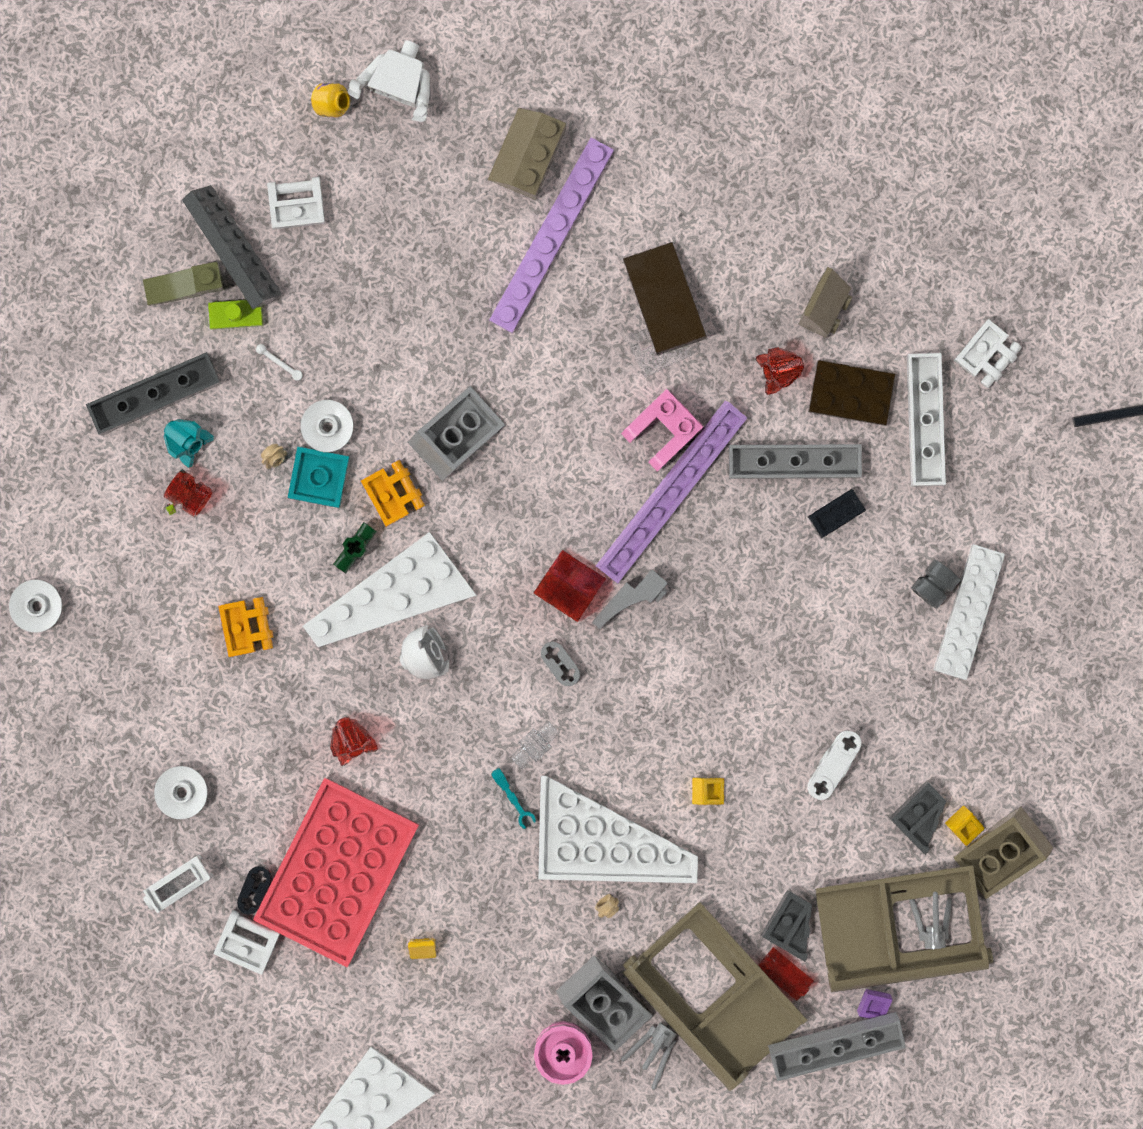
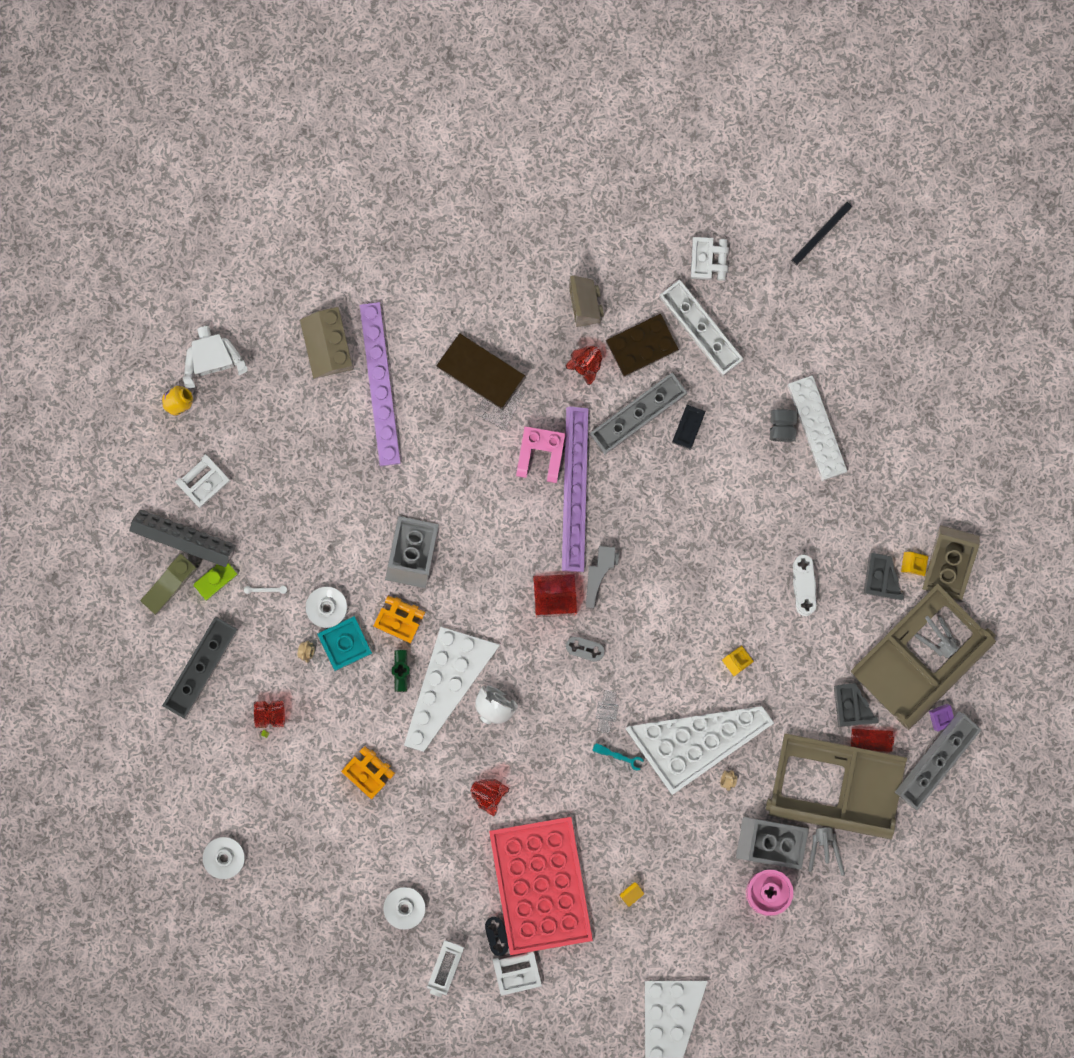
camera: 45 degrees left, 5 degrees down
(185, 439) = (242, 681): teal brick -> none

